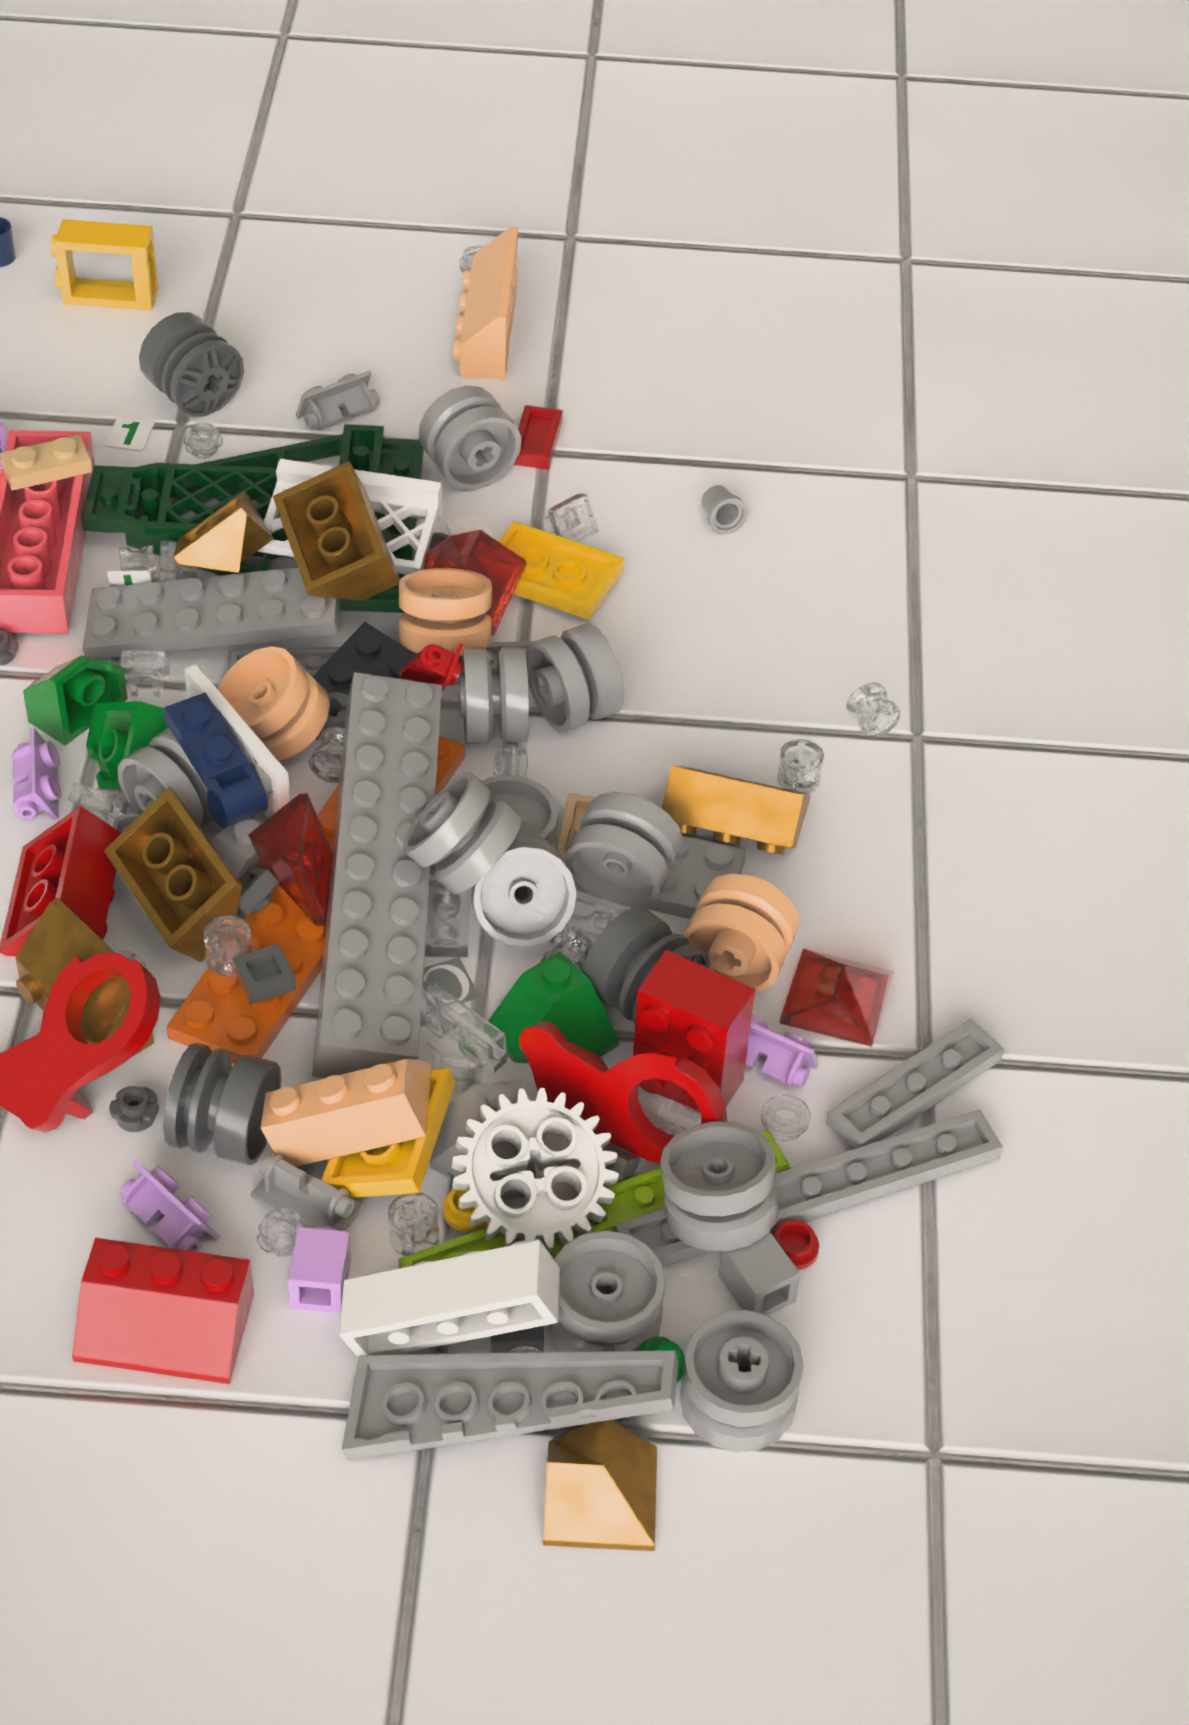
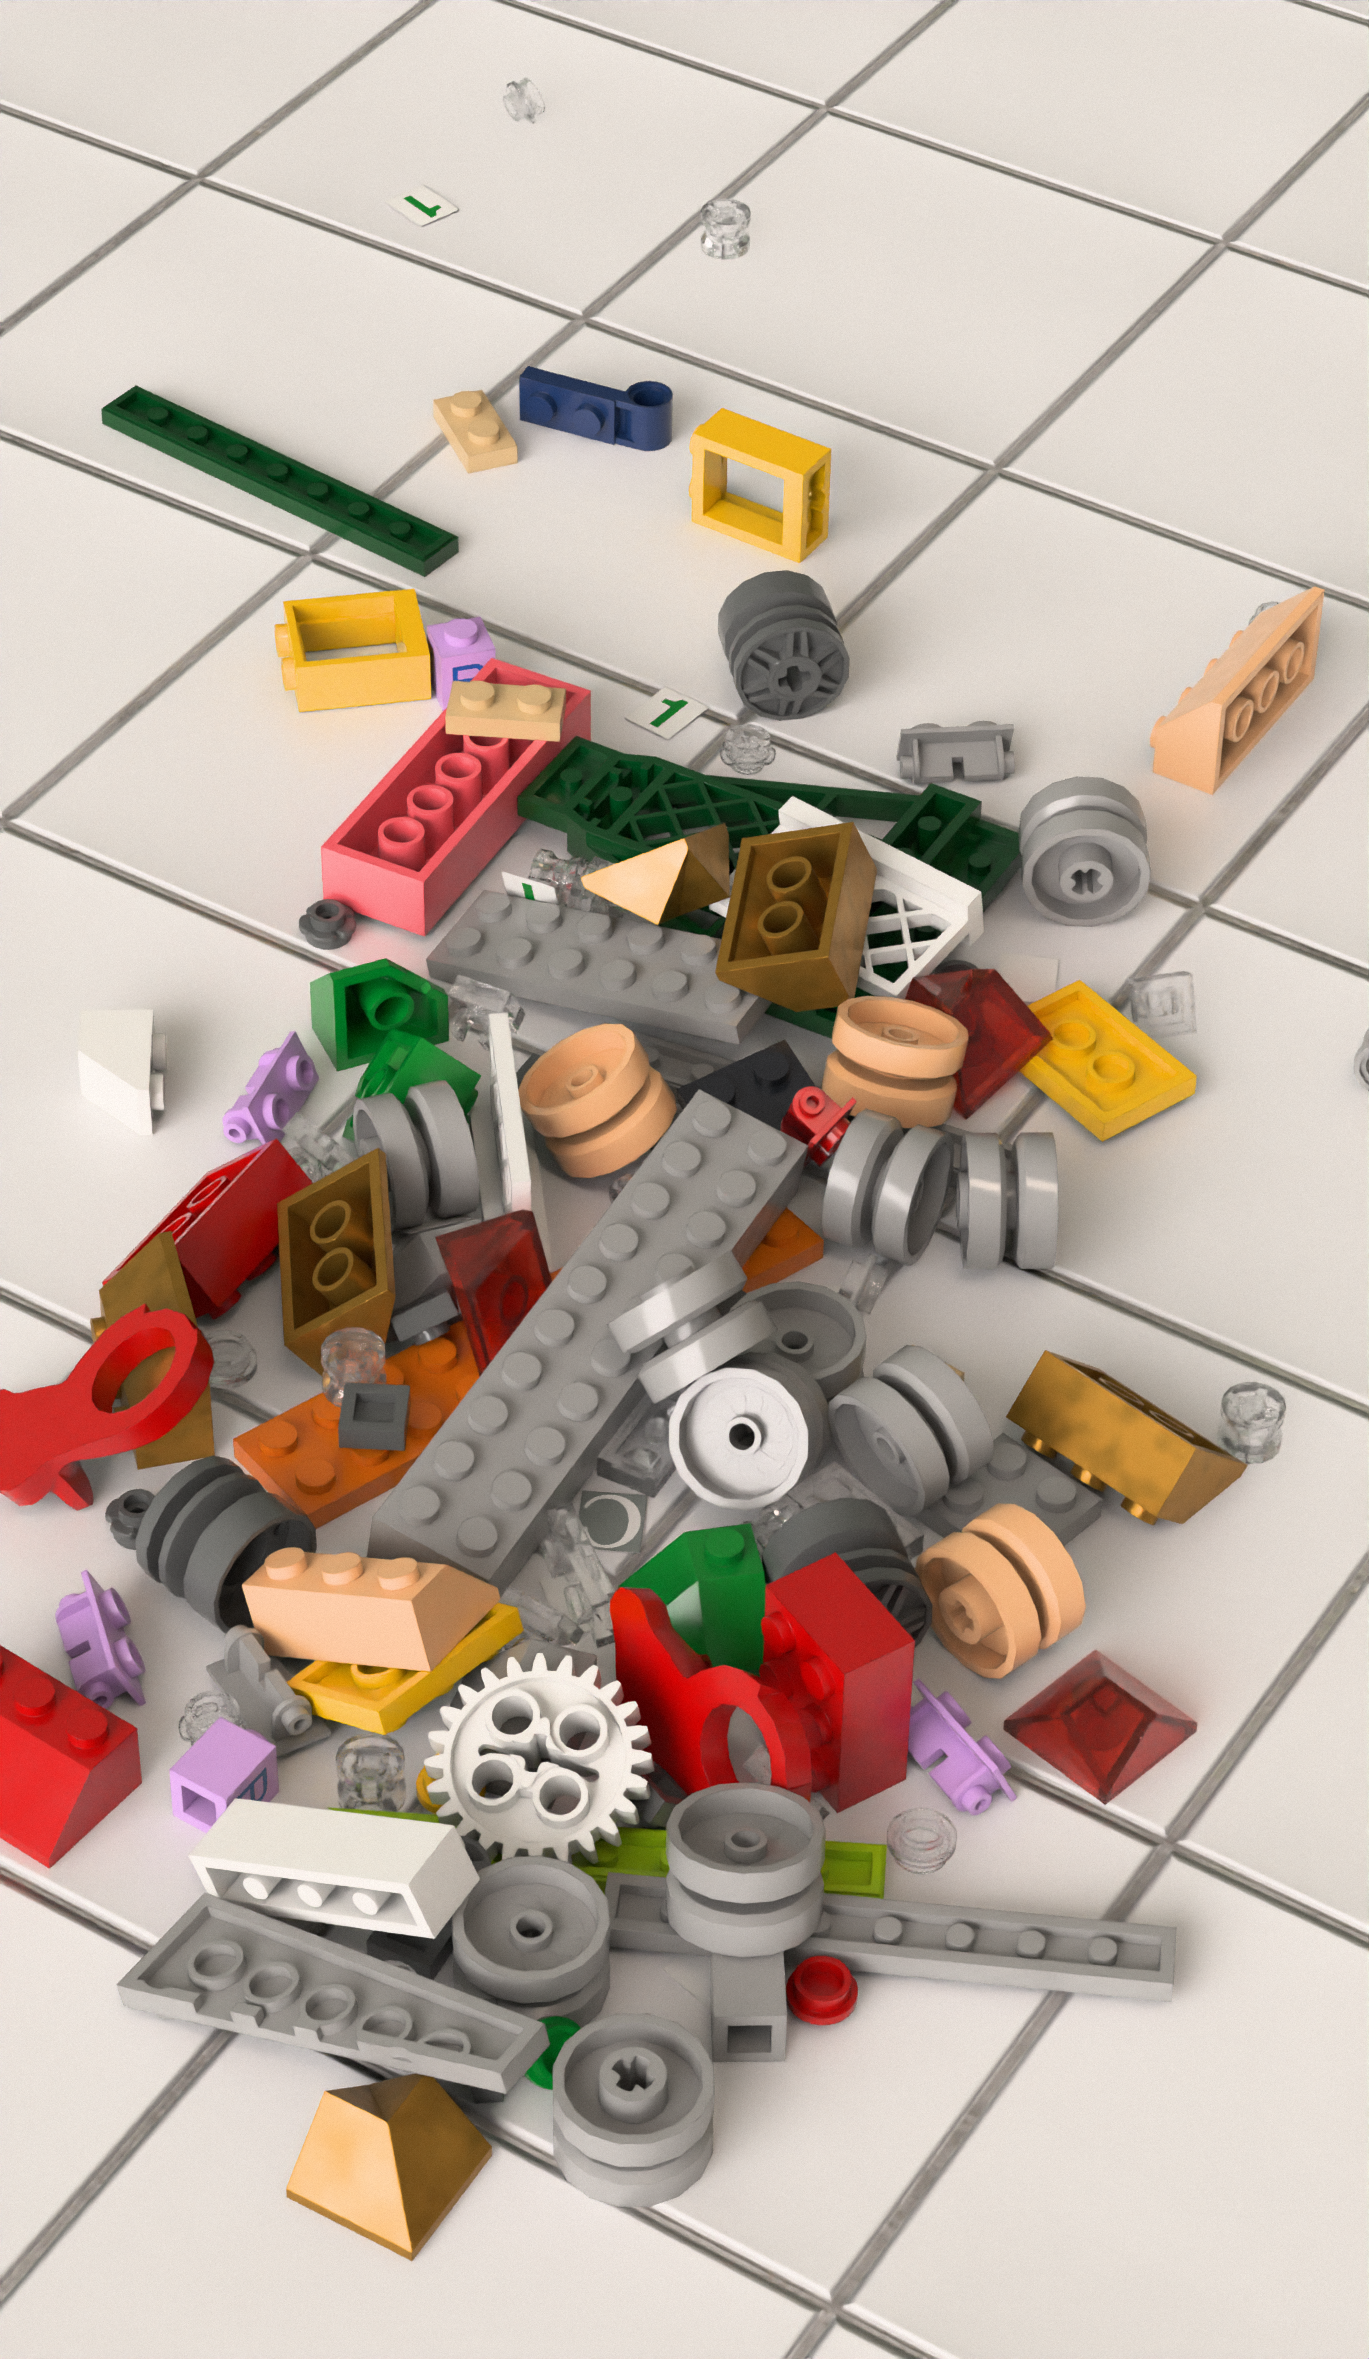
camera: 30 degrees right, 5 degrees down
(230, 781) = (461, 1136): dark blue plate -> none
(539, 434) = (1198, 883): red tile -> none
(914, 1085) = (1119, 1867): light grey plate -> none

